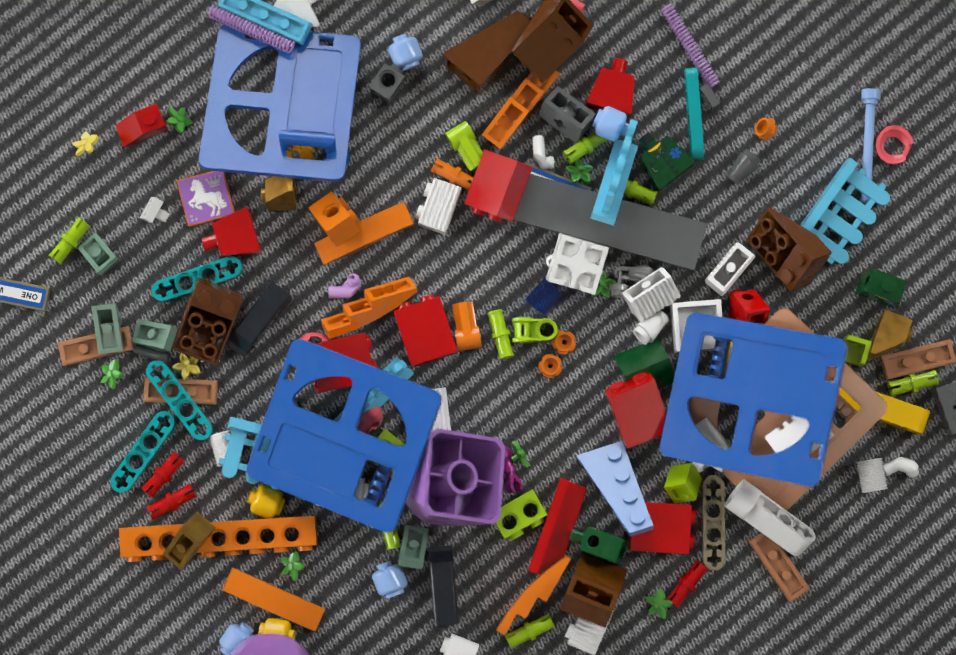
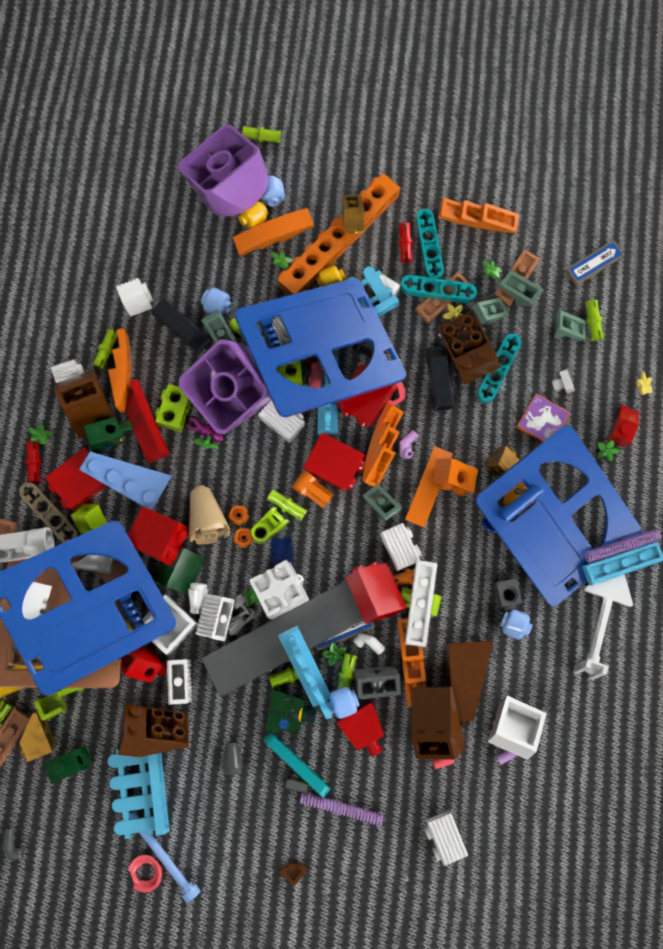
camera: 135 degrees right, 5 degrees down
(71, 436) = (478, 216): none -> orange slope
(171, 501) = (385, 232): red pin -> none
(234, 235) = (503, 412): red torso -> none
(418, 257) = (381, 502): none -> sand green slope
(469, 142) = (420, 603): none -> white tile
(580, 389) = (206, 517): none -> tan cone
(766, 128) = (240, 800): orange plate -> none
(774, 35) = (293, 872): none -> reddish brown tile

